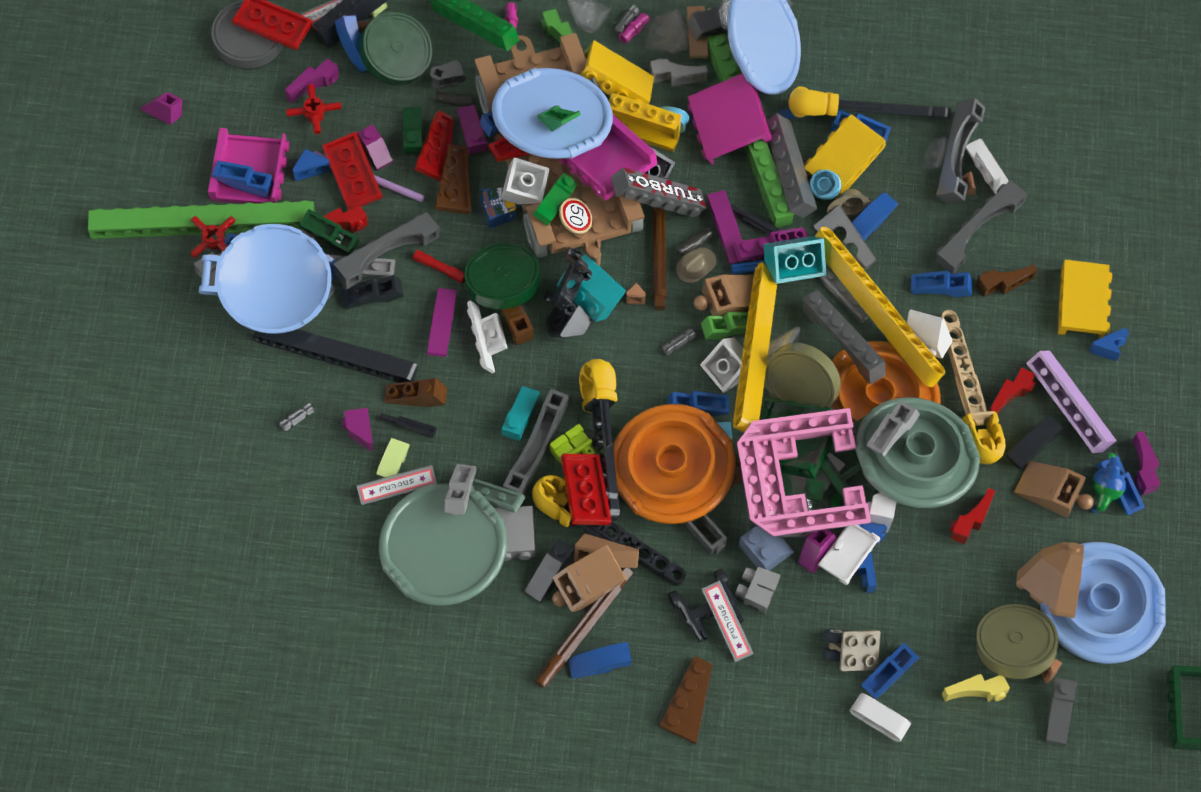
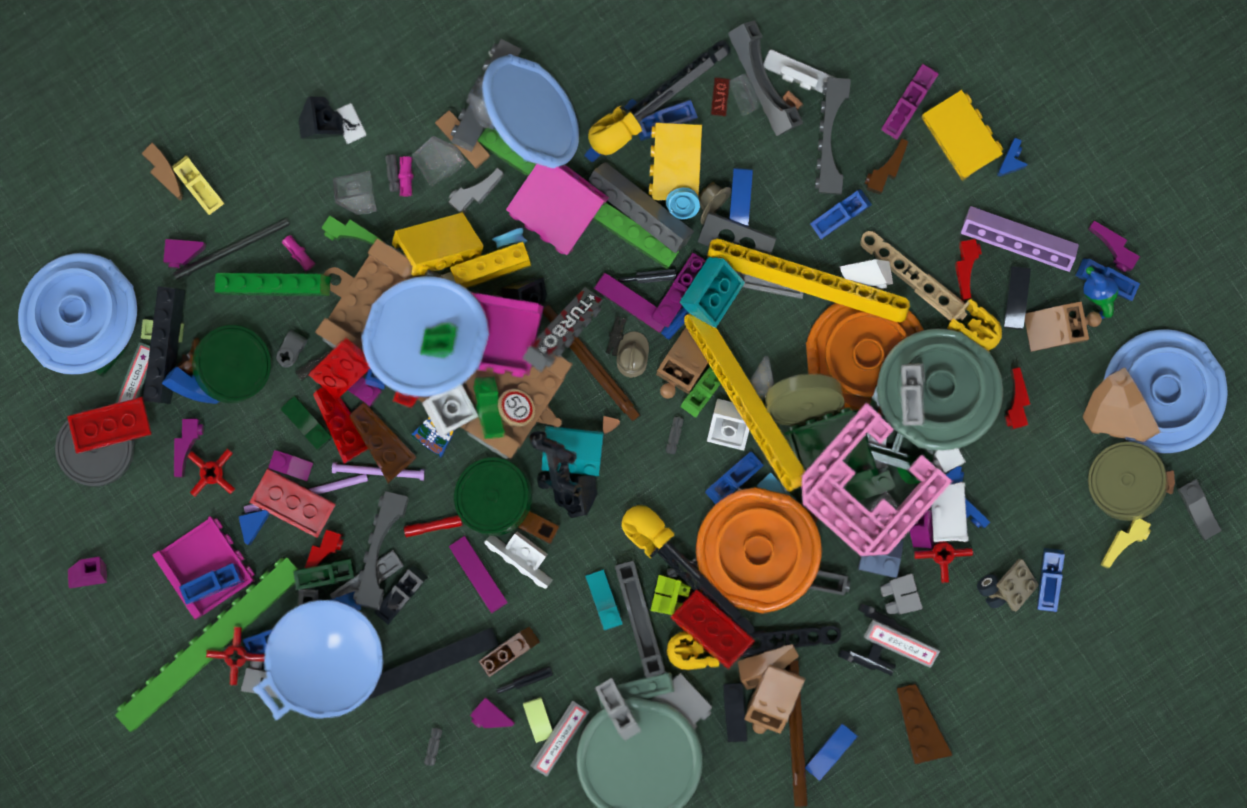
camera: 30 degrees left, 20 degrees up
(405, 175) = (375, 471): none -> lavender bar
(470, 101) = (340, 368): none -> red piece
(819, 589) = (939, 559): none -> red bar
(866, 359) = (804, 330): dark grey arch -> none
(880, 717) = (1071, 623): white beam -> none
(915, 145) = (720, 97): none -> clear red sticker
(1061, 249) = (910, 101): none -> magenta slope

